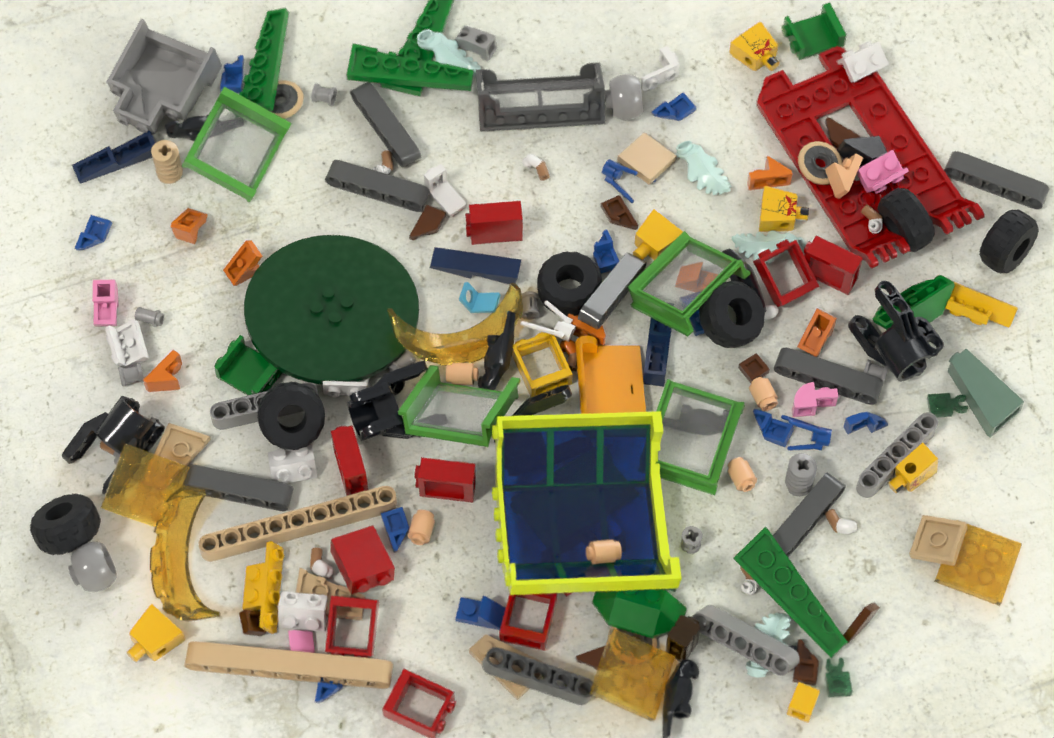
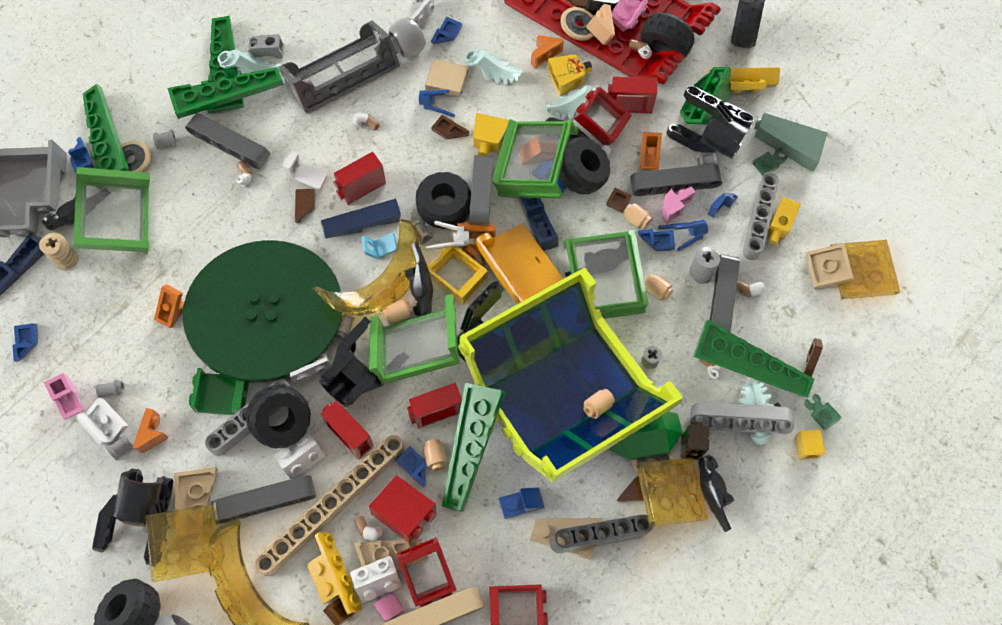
camera: 30 degrees left, 5 degrees up
(187, 224) = (104, 294): orange slope -> none
(377, 185) = (247, 192): dark grey beam -> none
(471, 512) = (474, 426): none -> wing
(526, 637) = (568, 505): red window -> none
(604, 253) = (456, 164): blue slope -> none
(807, 669) = (799, 417): reddish brown tile -> none

